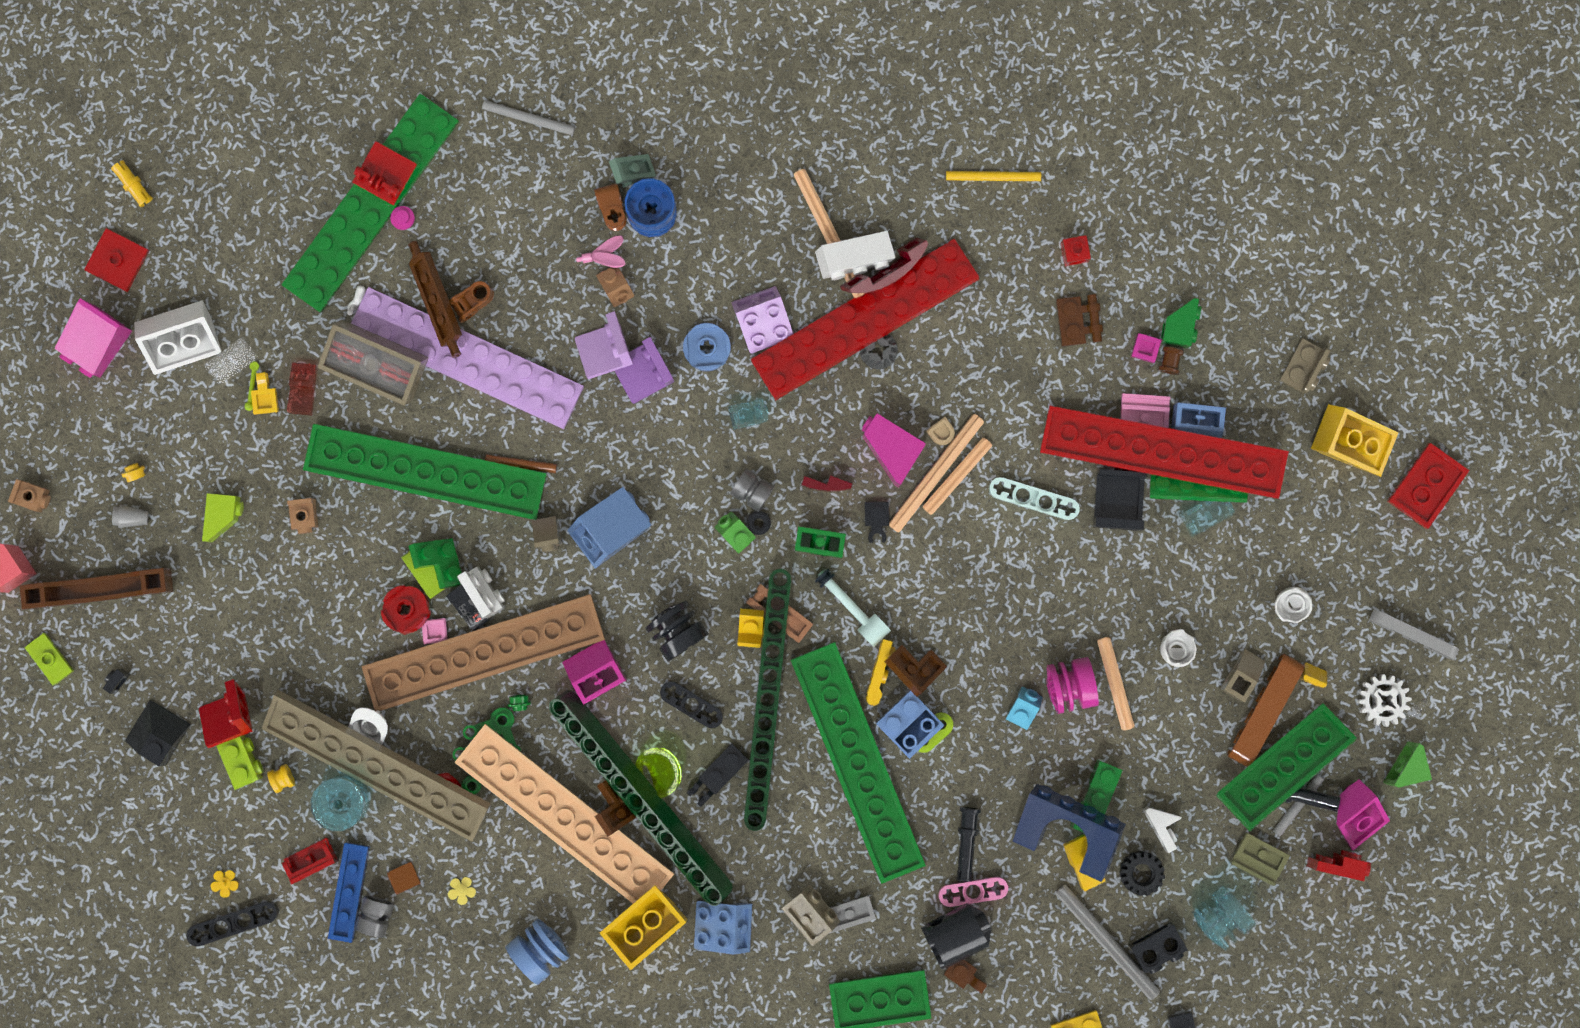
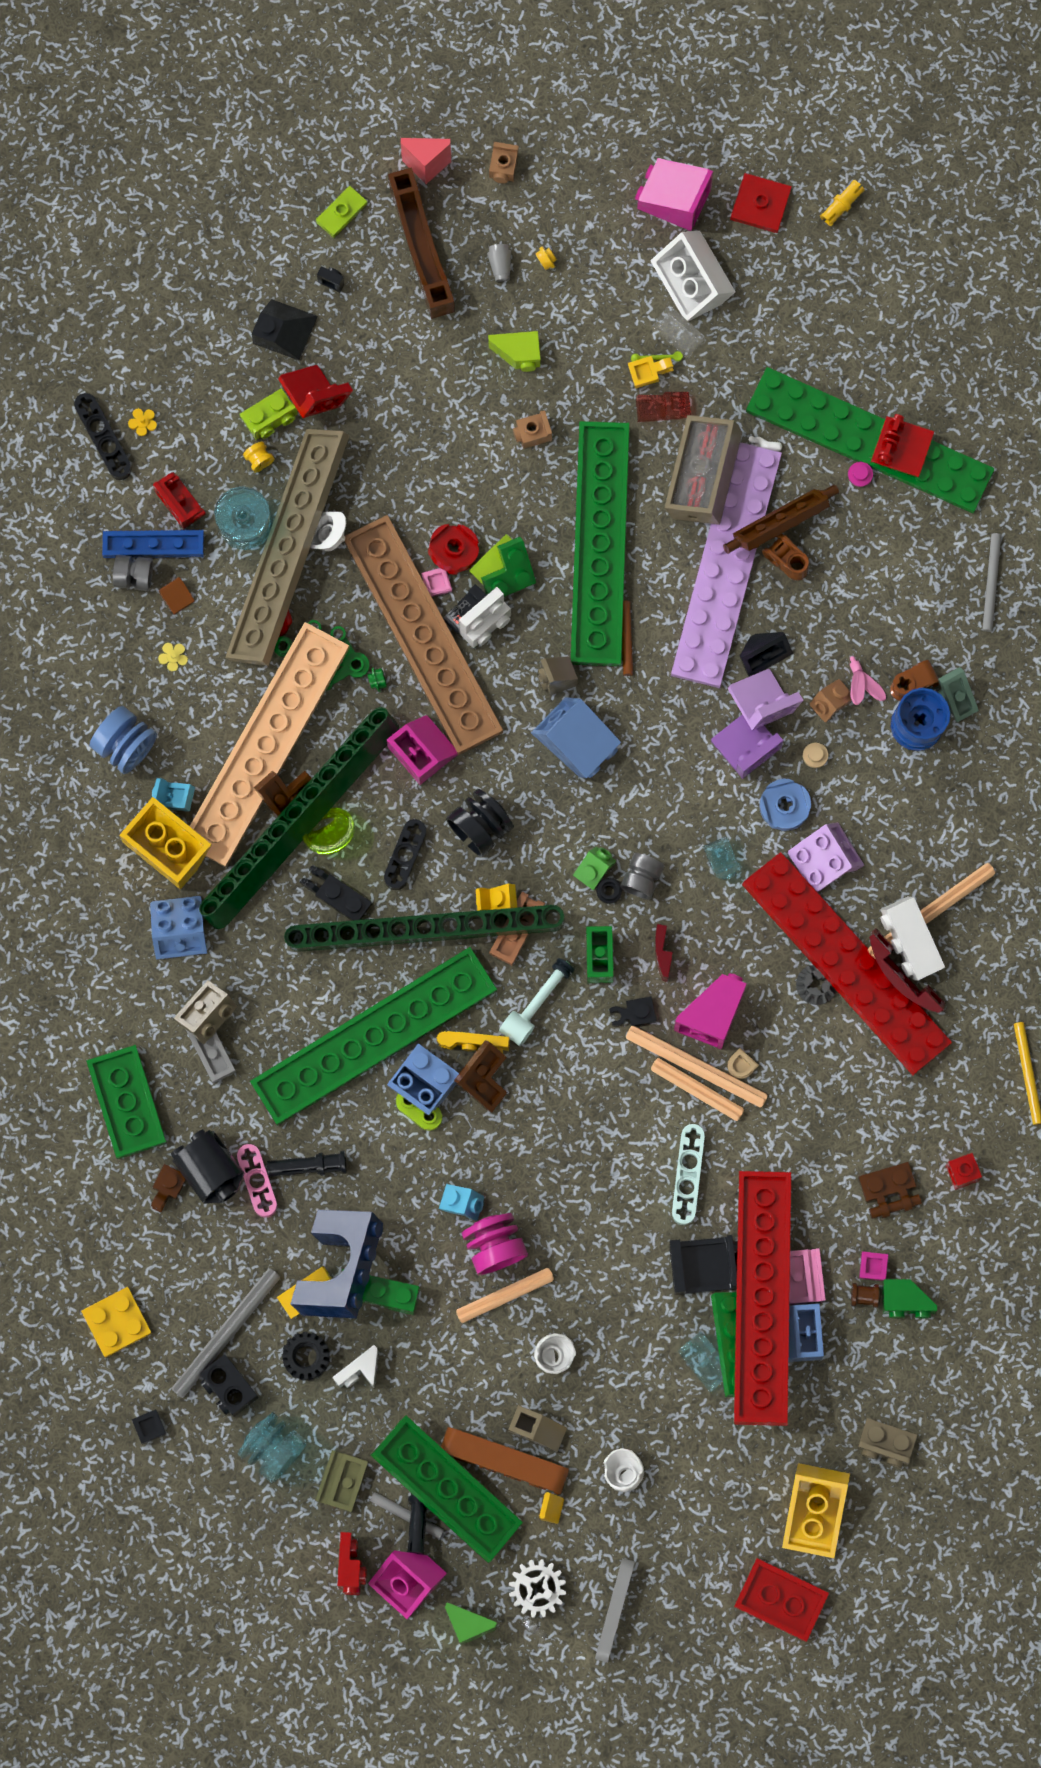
camera: 80 degrees right, 10 degrees down
(557, 339) = (764, 651): none -> black slope
(597, 912) = (173, 795): none -> medium azure bracket
(664, 310) = (815, 755): none -> tan plate

